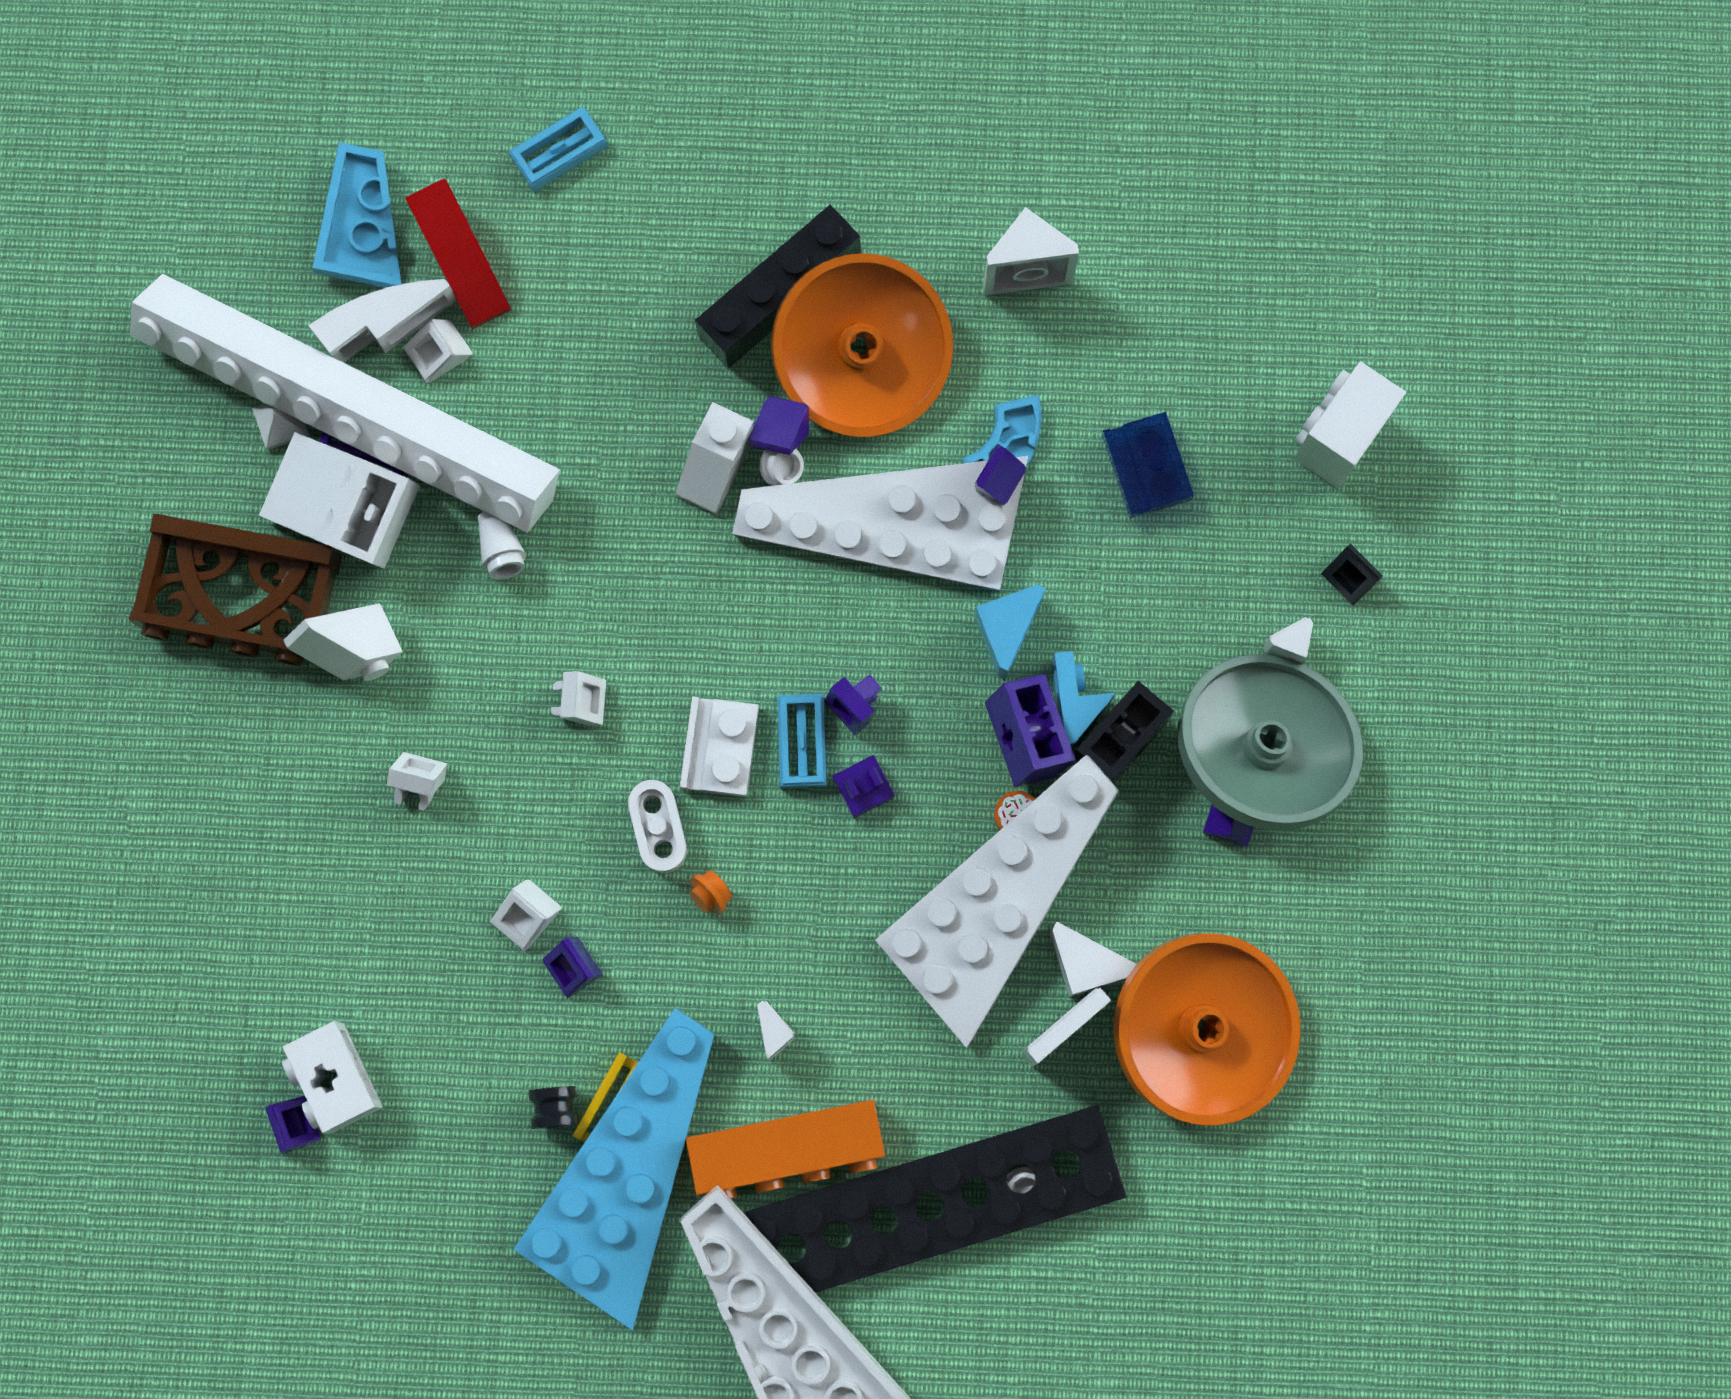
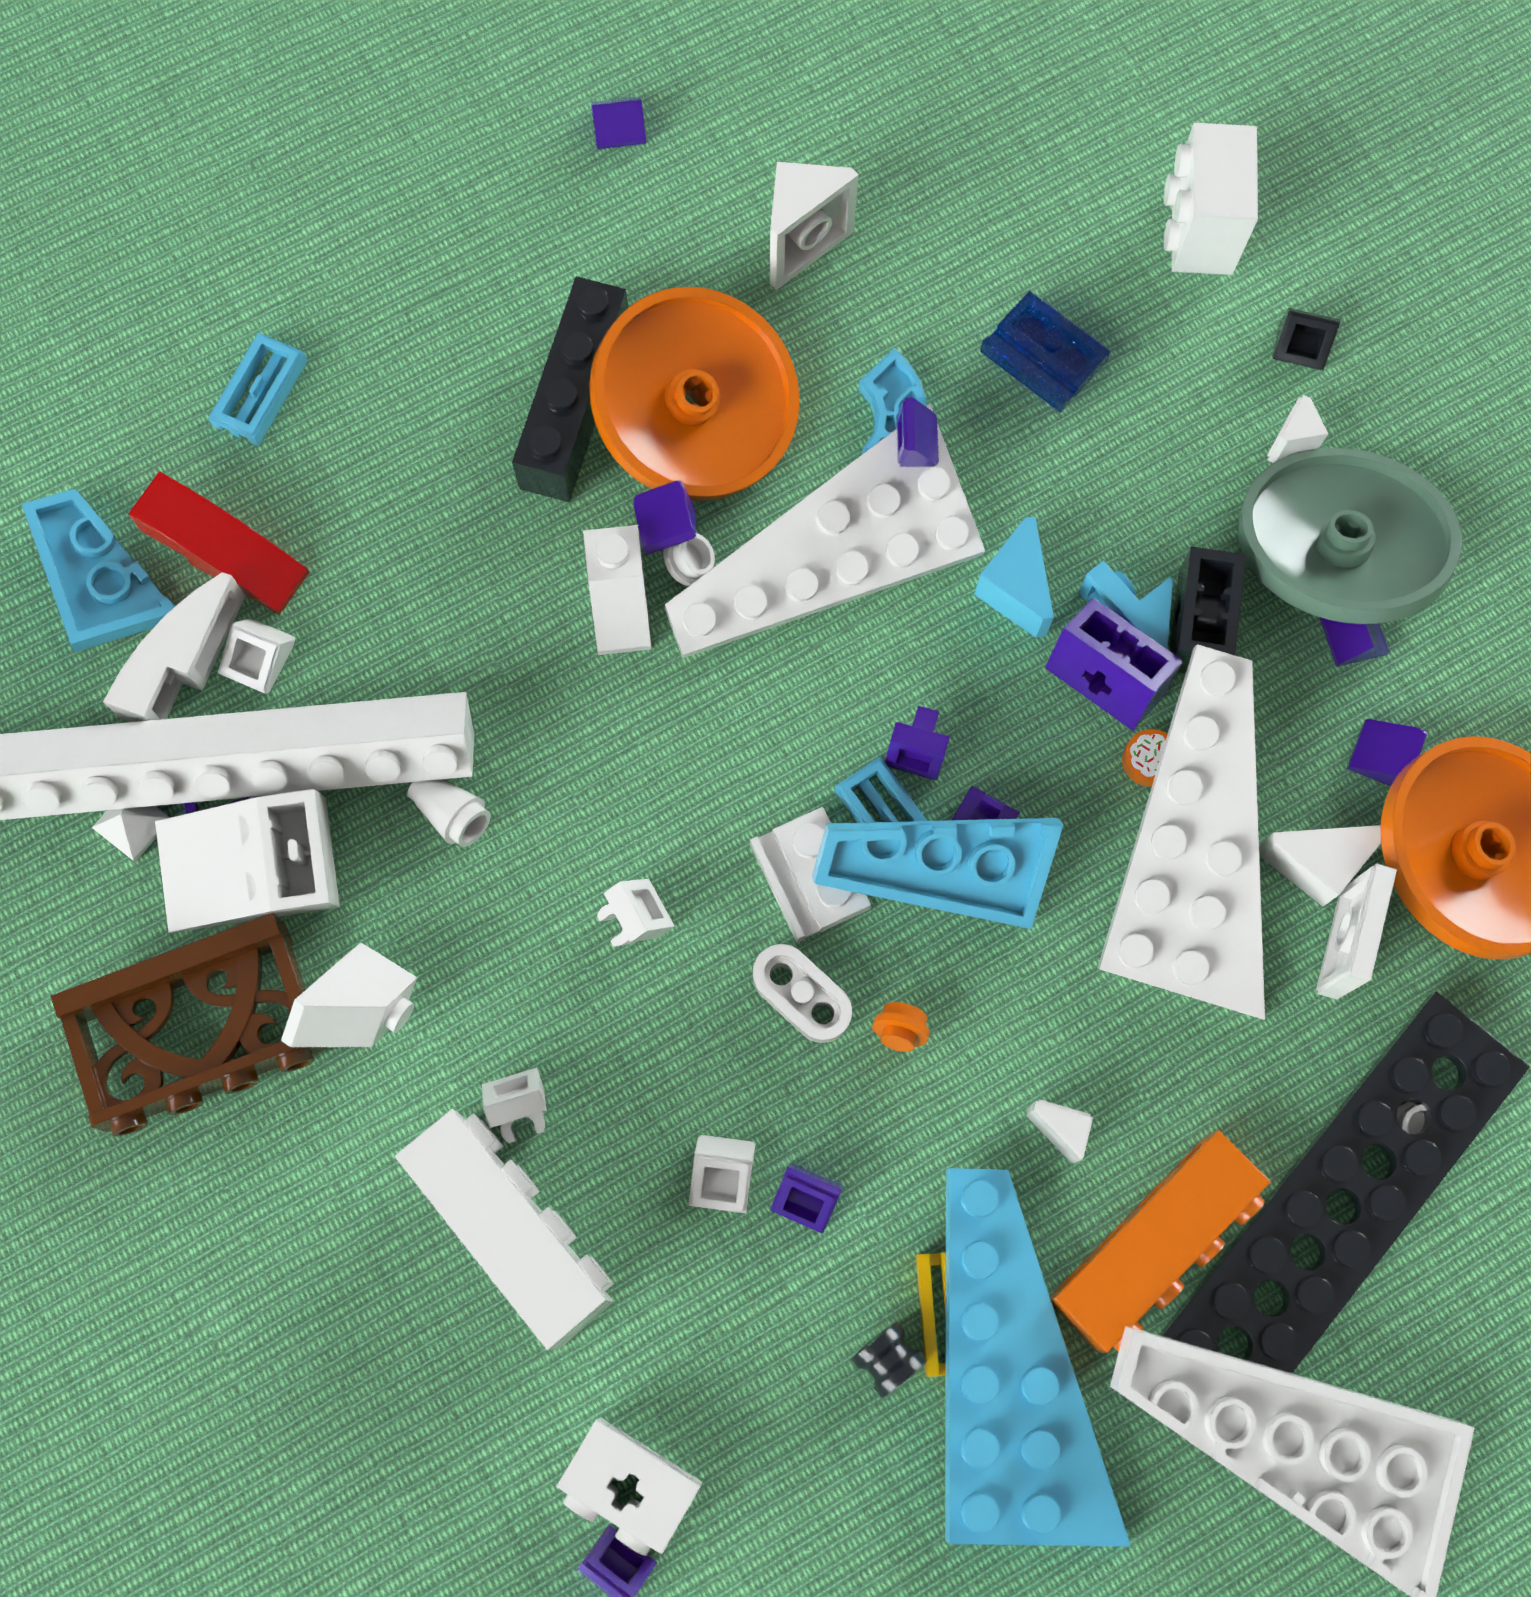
camera: 35 degrees left, 5 degrees down
(355, 860) = (505, 1229): none -> white brick
(817, 804) = (952, 865): none -> medium azure wing
(950, 91) = (618, 122): none -> dark purple slope
(1190, 913) = (1385, 749): none -> dark purple slope

